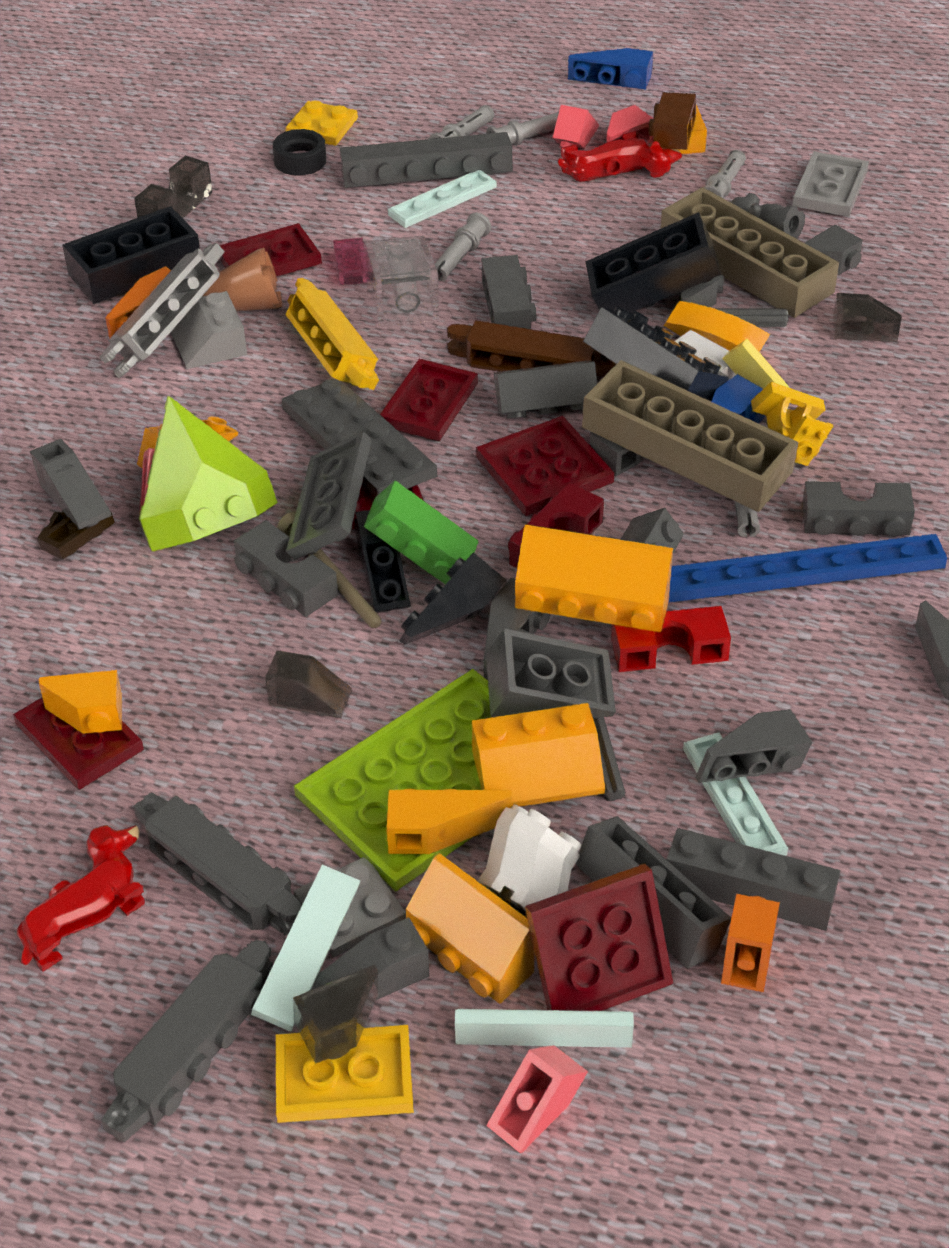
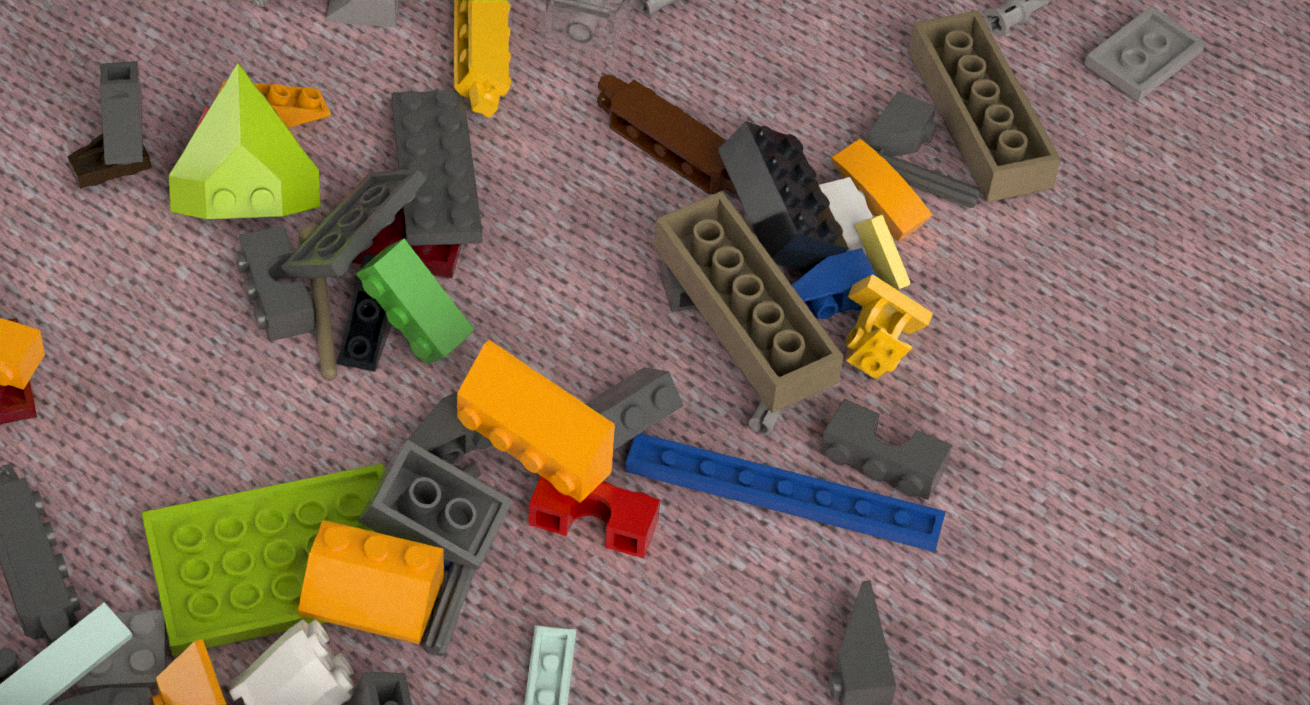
camera: 20 degrees right, 5 degrees up
(305, 685) = (216, 415): clear smoke slope -> none
(429, 399) = (537, 150): dark red plate -> none
(440, 818) = (237, 603): light orange slope -> none
(462, 598) = (408, 386): black slope -> none
(507, 292) = (695, 59): dark grey brick -> none
(542, 462) = (602, 271): dark red plate -> none
(544, 388) = (652, 182): dark grey brick -> none
(568, 510) = (588, 334): dark red arch -> none
(654, 266) = (853, 89): black brick -> none
(759, 746) = (594, 661): dark grey slope -> none
(784, 218) = (1034, 74): dark grey piece -> none
(839, 246) = (1081, 138): dark grey slope -> none
(864, 319) = (1054, 233): clear smoke slope -> none

